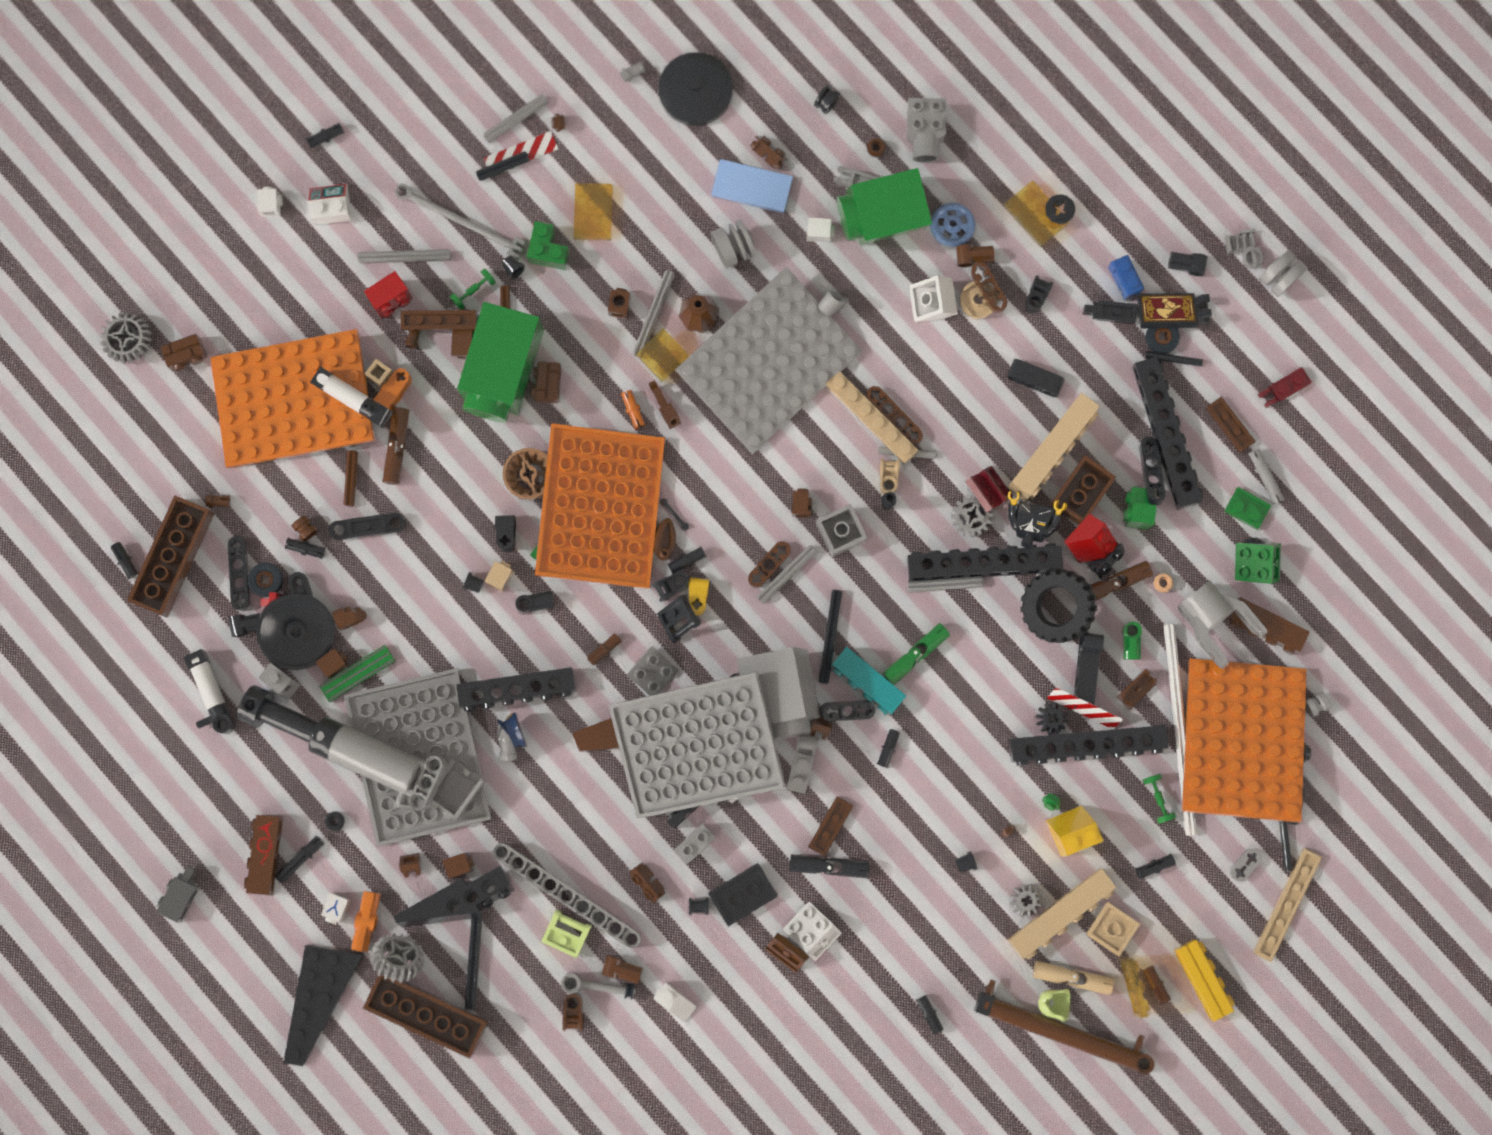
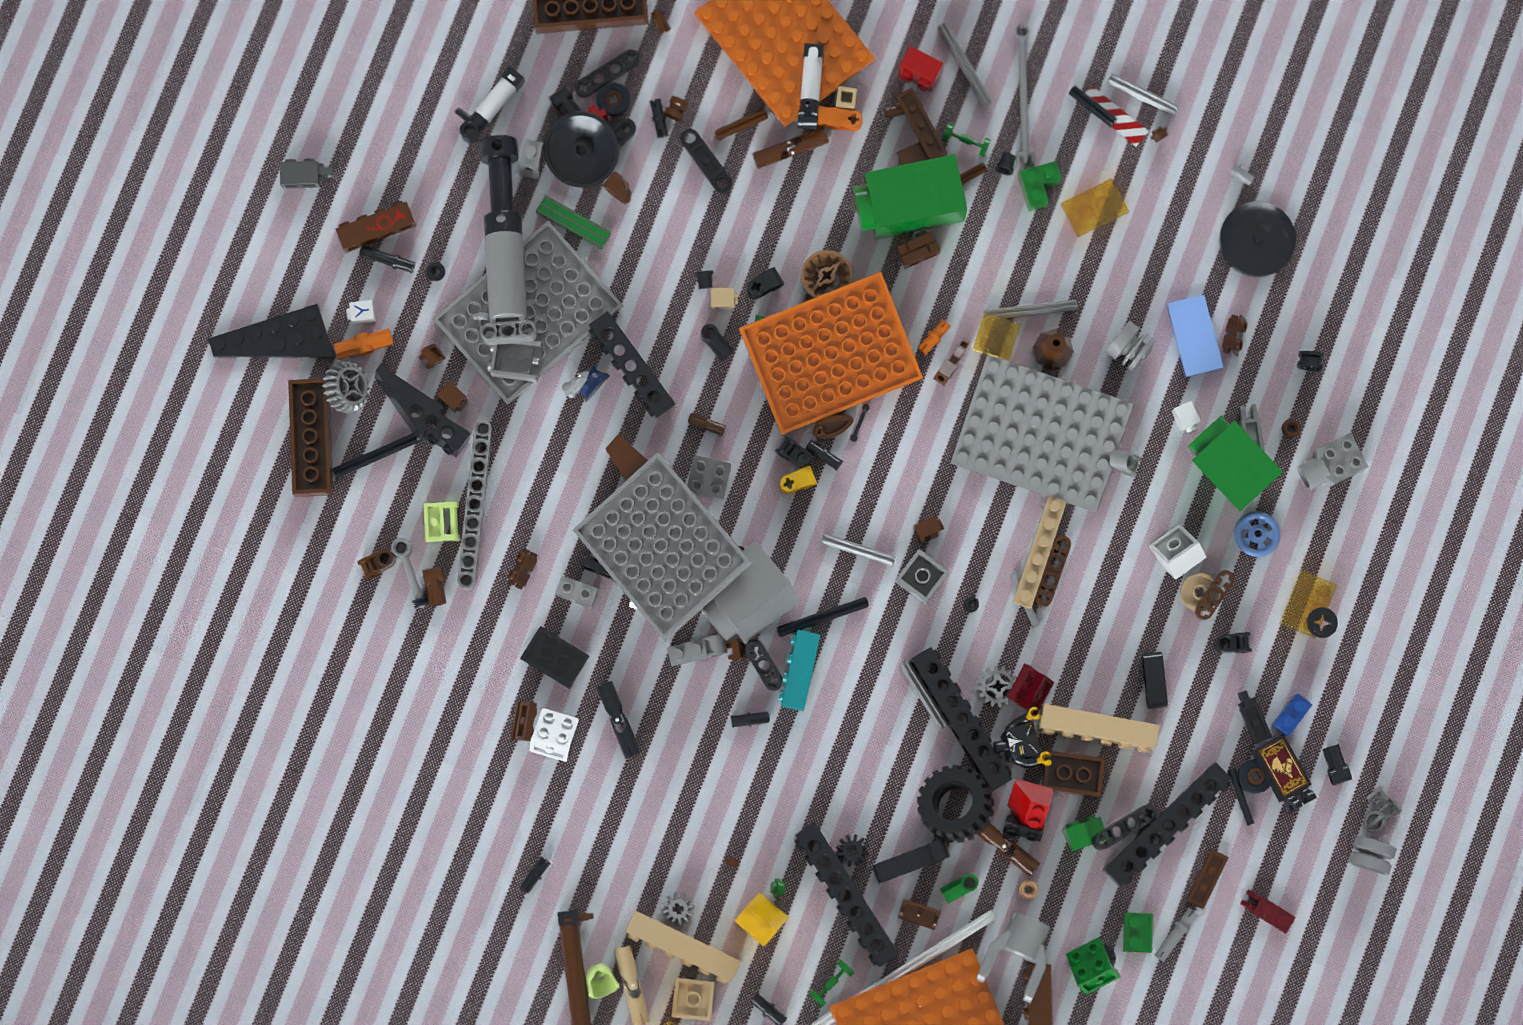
camera: 60 degrees right, 0 degrees up
(332, 663) = (571, 196): reddish brown brick -> none
(619, 311) = (1017, 280): reddish brown brick -> none
(674, 1002) = (431, 646): white slope -> none
(676, 612) = (769, 468): black plate -> none
(698, 906) = (524, 624): black bush -> none
(782, 557) = (843, 531): reddish brown beam -> none
(830, 826) = (654, 703): reddish brown tile -> none
(889, 473) = (997, 592): tan piece -> none
(906, 662) = (837, 697): green piece -> none
(966, 862) = (684, 840): black piece -> none
(969, 255) = (1236, 563): reddish brown piece -> none
(1084, 708) = (876, 875): sticker -> none

